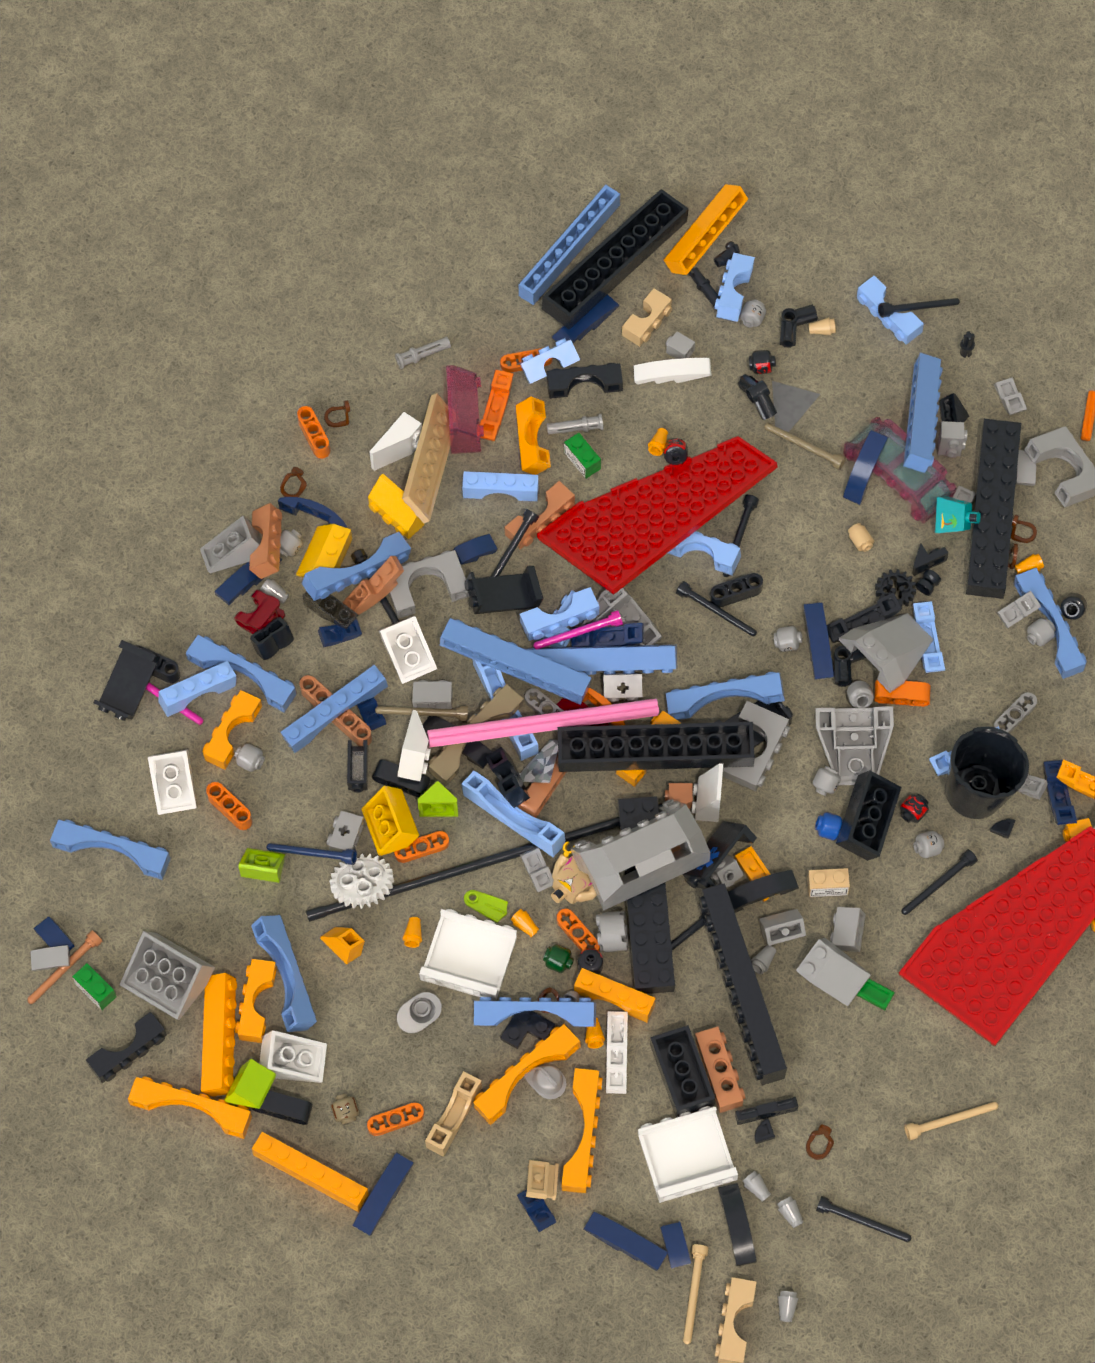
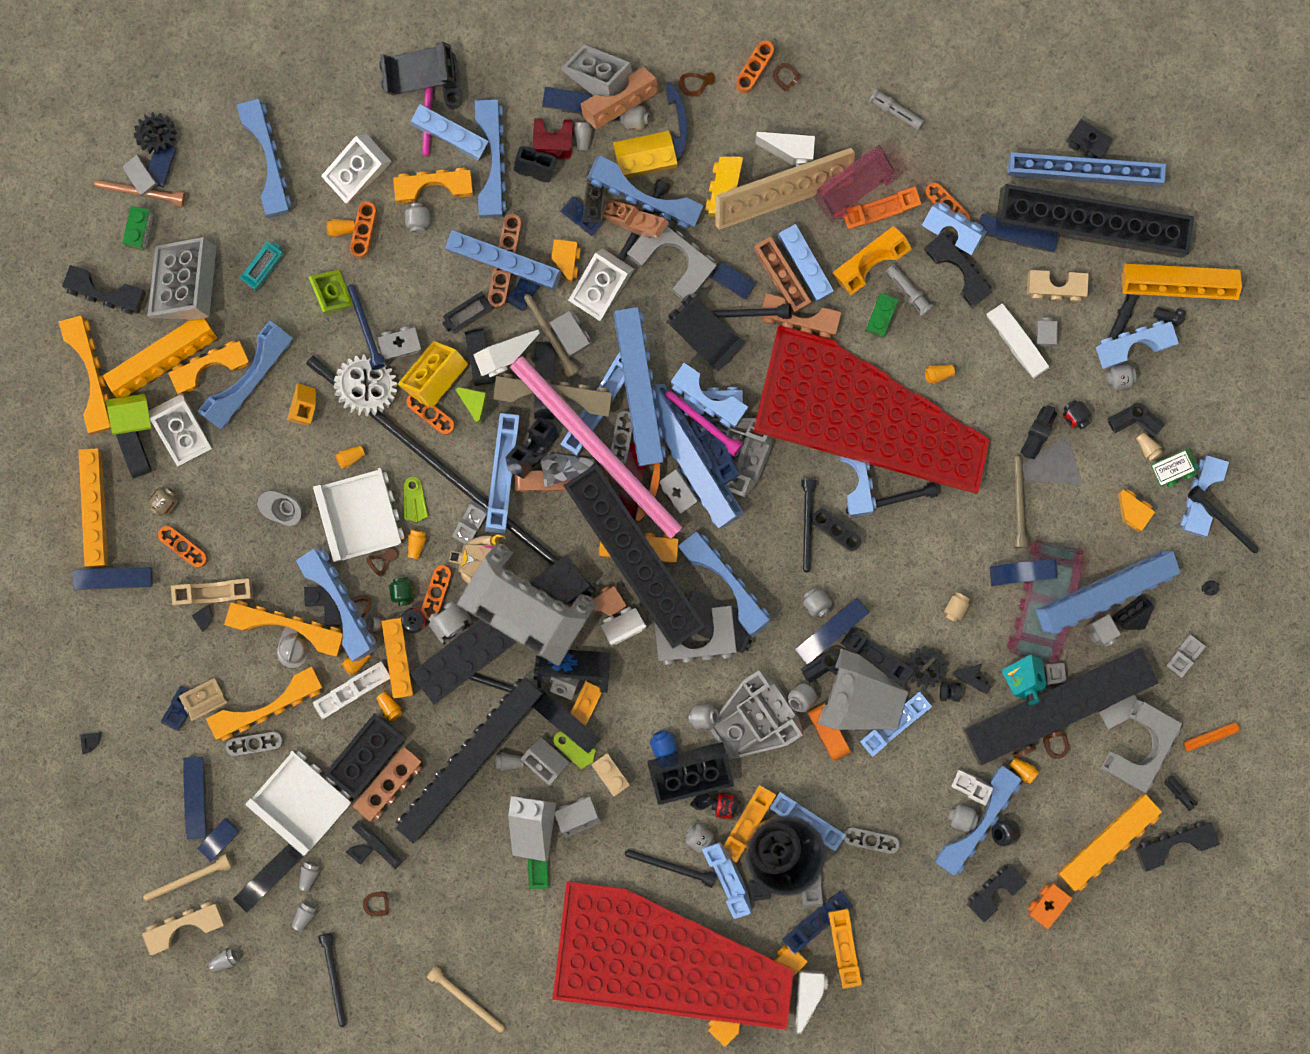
camera: 55 degrees right, 20 degrees up
(16, 931) = (145, 130): none -> black gear
(199, 903) = (262, 265): none -> teal window
(212, 824) = (339, 227): none -> light orange cone
(364, 658) = (564, 258): none -> light orange slope
(470, 1139) = (203, 618): none -> black tile
(495, 507) = (781, 275): none -> nougat brick
(514, 1305) = (89, 742): none -> black tile
(520, 951) = (390, 555): none -> reddish brown piece
(546, 230) = (1088, 140): none -> black brick
(609, 1178) = (268, 736): none -> light grey beam
(651, 1028) = (389, 707): none -> light orange cone
(675, 449) = (937, 394): black head -> none
(793, 900) = (573, 751): none -> lime piece
(853, 314) = (1176, 466): none -> brick
(867, 366) = (1133, 511): none -> light orange slope
(898, 824) = (702, 802): none -> black tile
(936, 797) = (749, 819): none -> light orange slope
(979, 841) = (730, 879): none -> light blue slope

